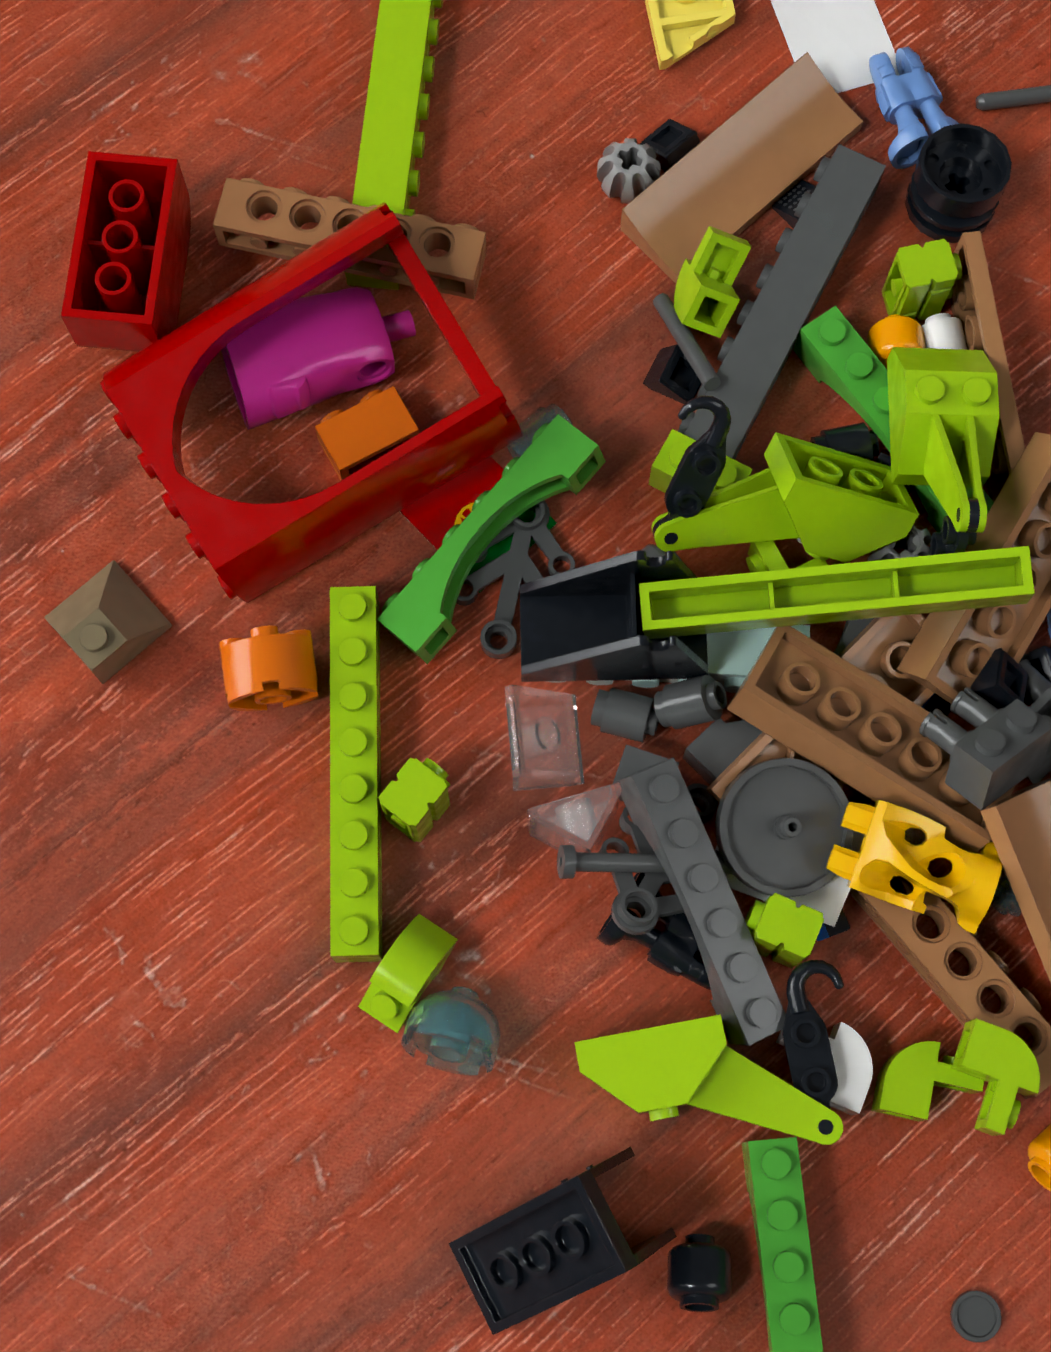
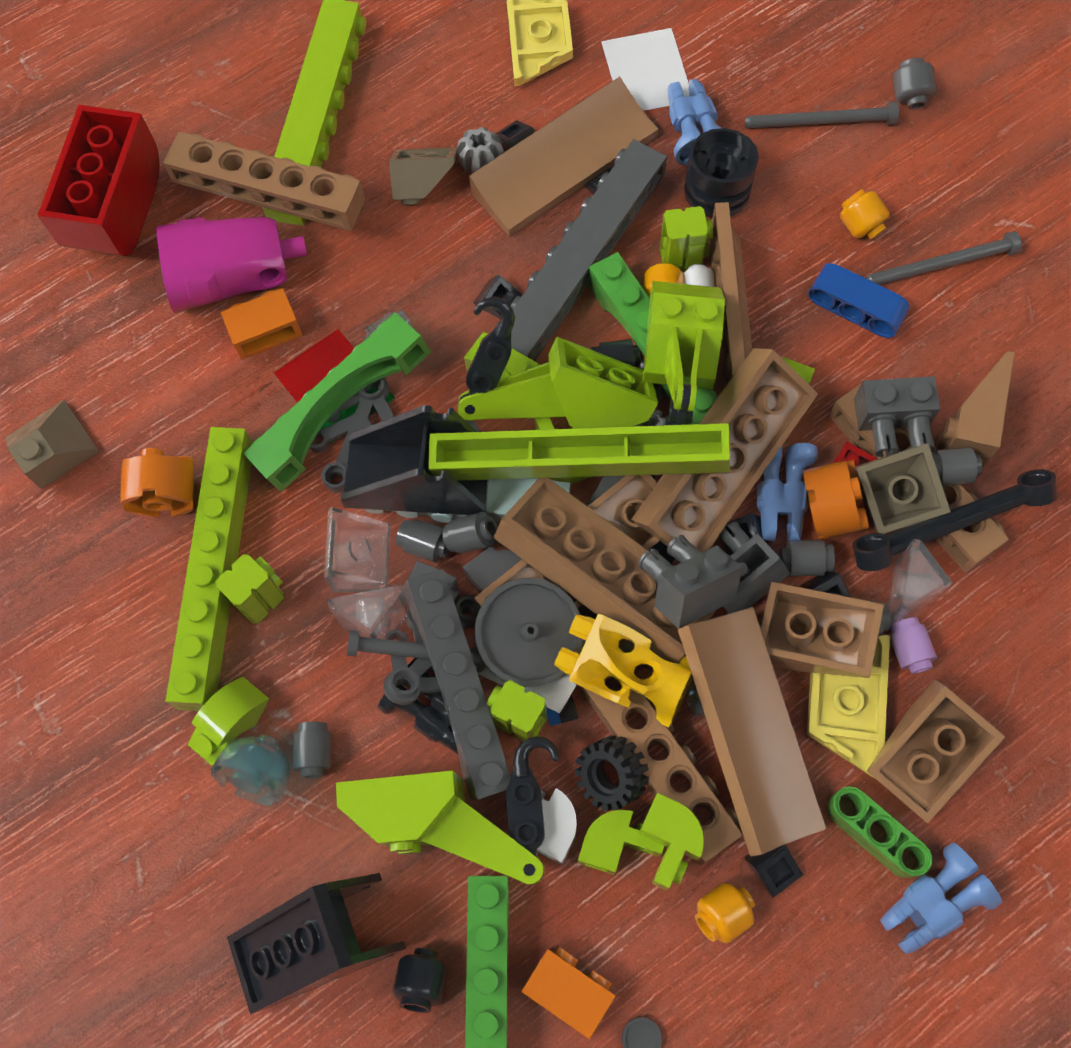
camera: 10 degrees right, 5 degrees down
(268, 543) = (175, 391): red panel -> none
(521, 999) = (312, 749): none -> dark grey brick
(552, 203) = (418, 171): none -> dark tan slope
(687, 343) = (505, 273): dark grey bar -> none
(704, 285) = (526, 230): lime brick -> none
(884, 1270) = (568, 992): none -> orange piece
(891, 1012) = (627, 766): none -> black tyre
(1001, 680) = (710, 532): black slope -> none

